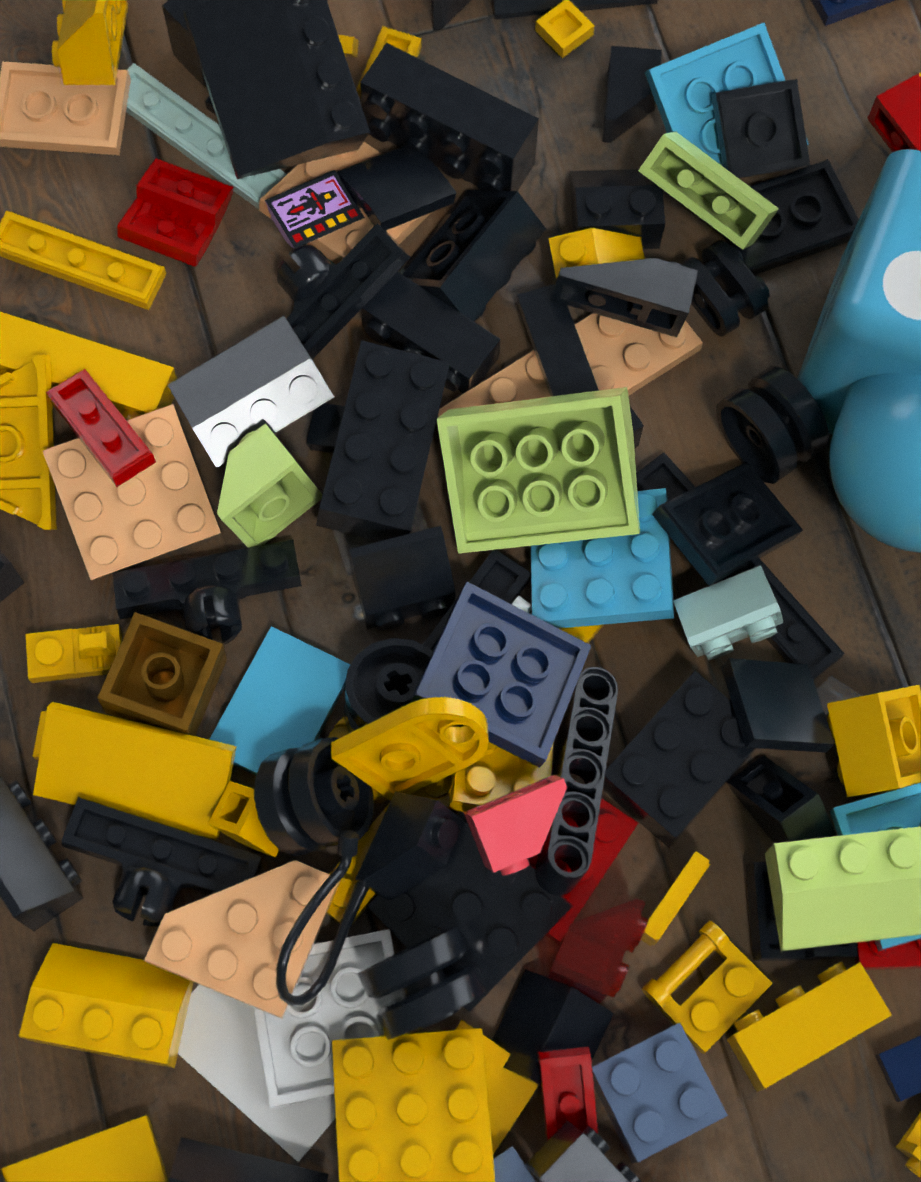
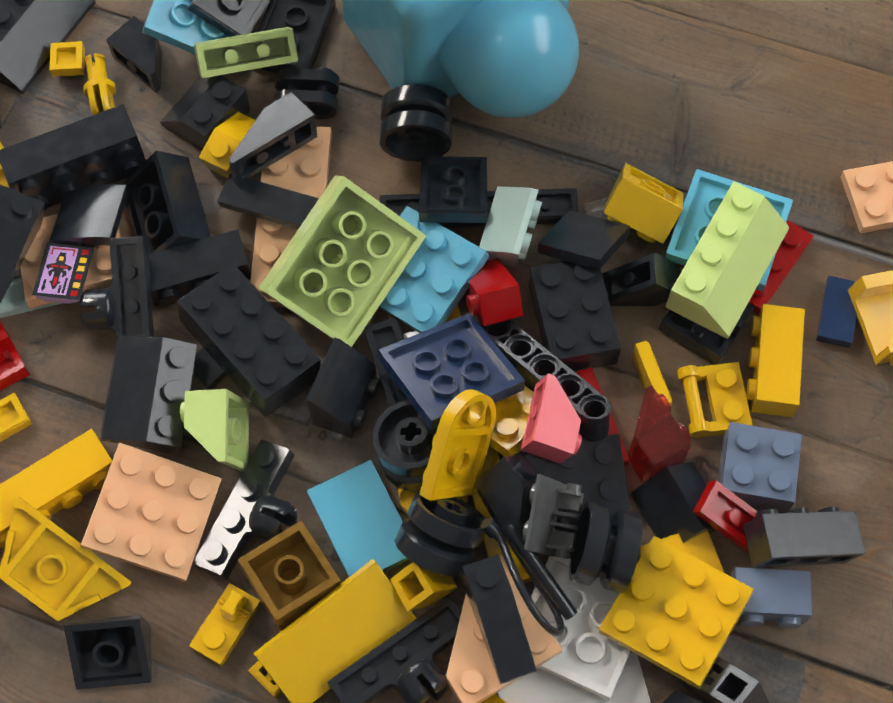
camera: 50 degrees left, 5 degrees down
(101, 427) = (98, 495): red tile -> none
(256, 924) = (498, 618): none -> black slope
(346, 929) = (540, 571): none -> black piece
(406, 895) = (542, 529): none -> dark grey hinge
(556, 83) = (98, 88): none -> yellow arm
(630, 654) = (494, 294): none -> red slope

